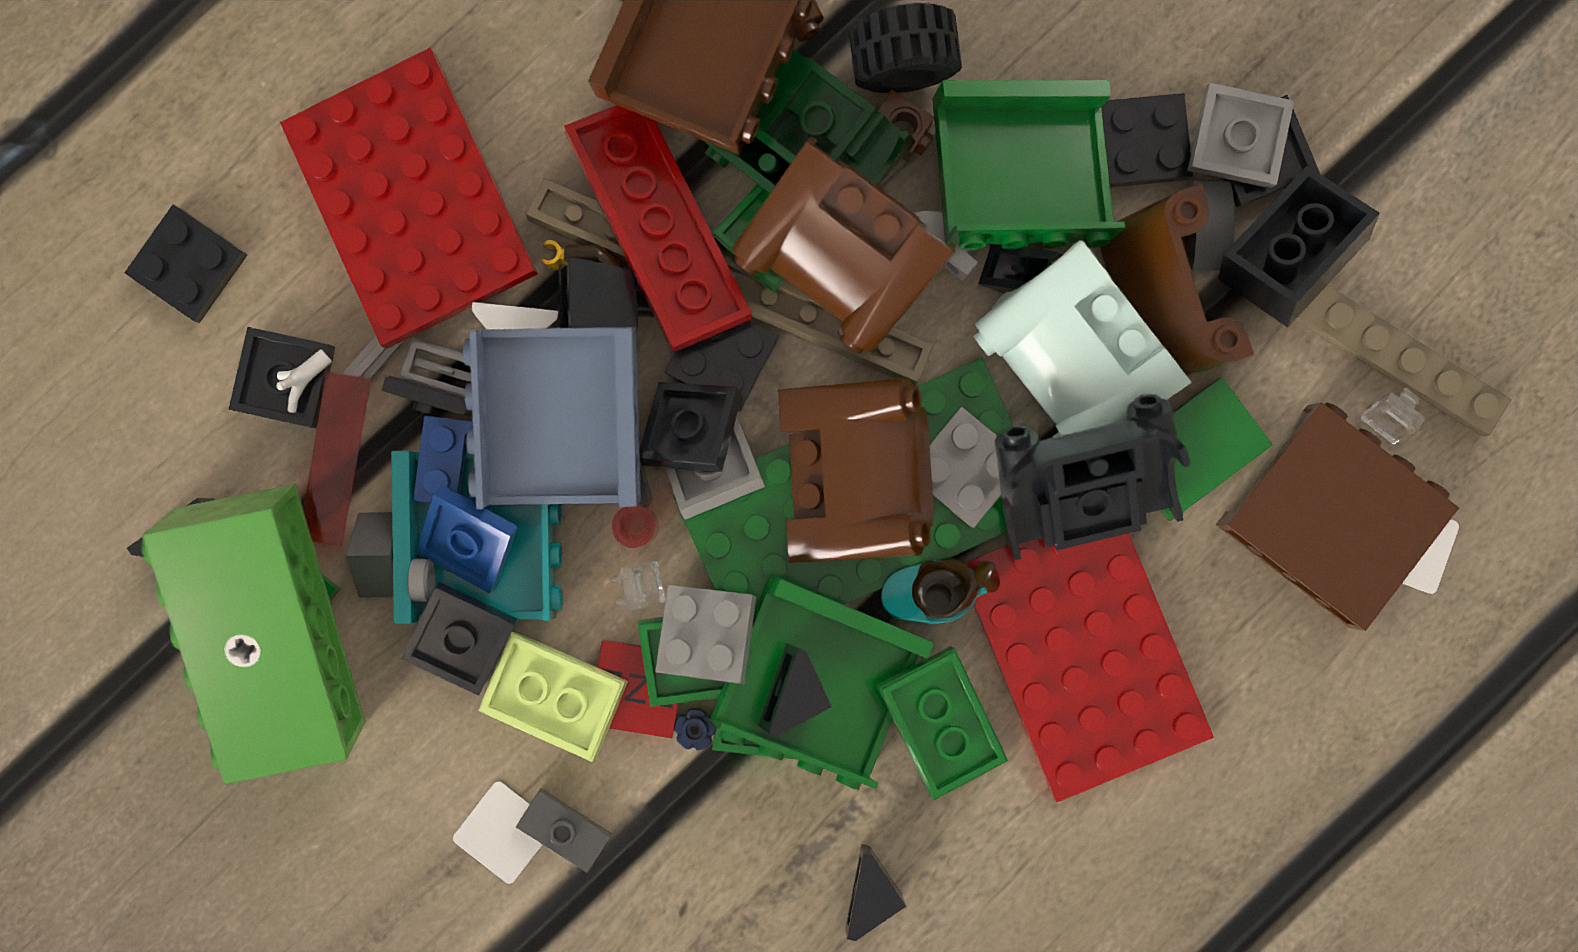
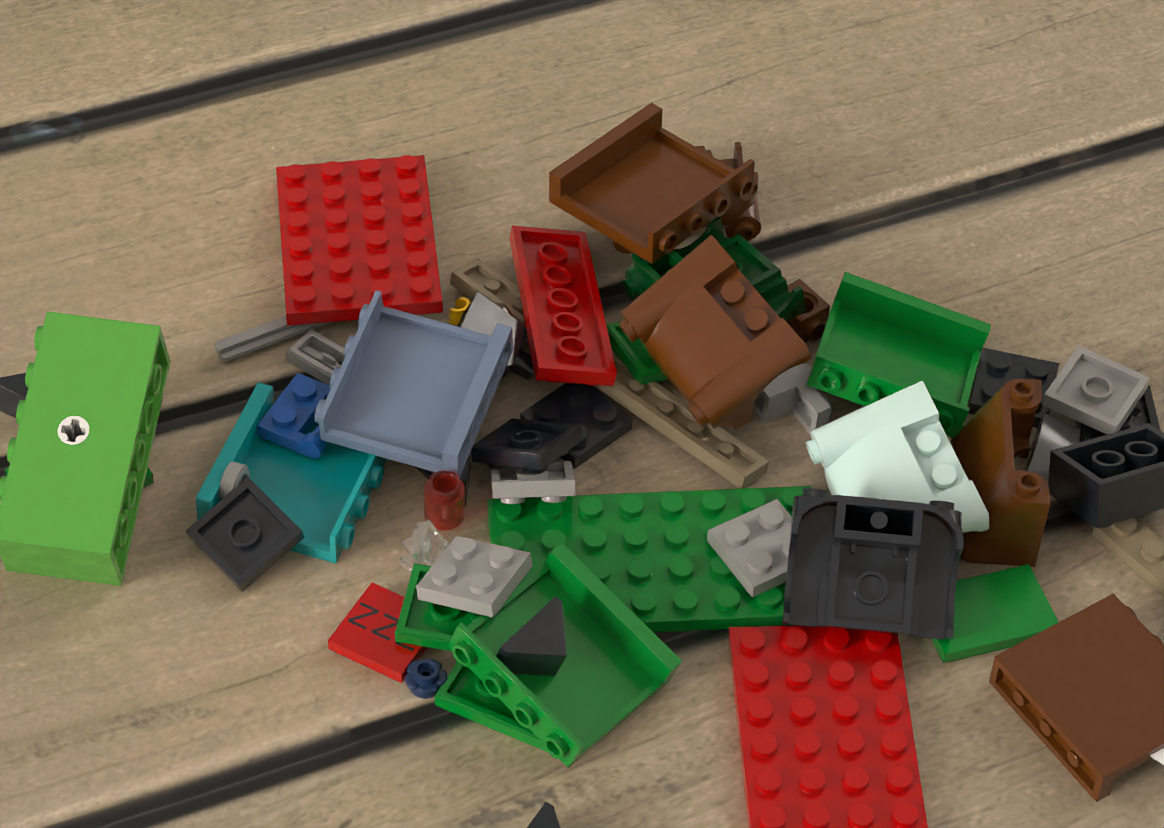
camera: 15 degrees right, 40 degrees down
(185, 263) = (147, 232): black plate -> none
(256, 378) = (191, 320): black plate -> none
(301, 376) = (207, 315): white bar -> none
(335, 456) = (205, 381): clear red tile -> none
(372, 554) = (192, 464): dark grey slope -> none
(426, 398) = (294, 358): black plate -> none
(466, 539) = (291, 459): blue plate -> none
(492, 833) = (204, 707): white sticker -> none
(553, 696) = (307, 608): yellowish green tile -> none
(563, 830) = (263, 717): dark grey plate -> none
(858, 470) = (666, 503): reddish brown piece -> none
(905, 47) = (820, 245): black tyre -> none
(937, 590) = (709, 633): dark brown hair -> none
(942, 722) = (664, 739): green tile -> none

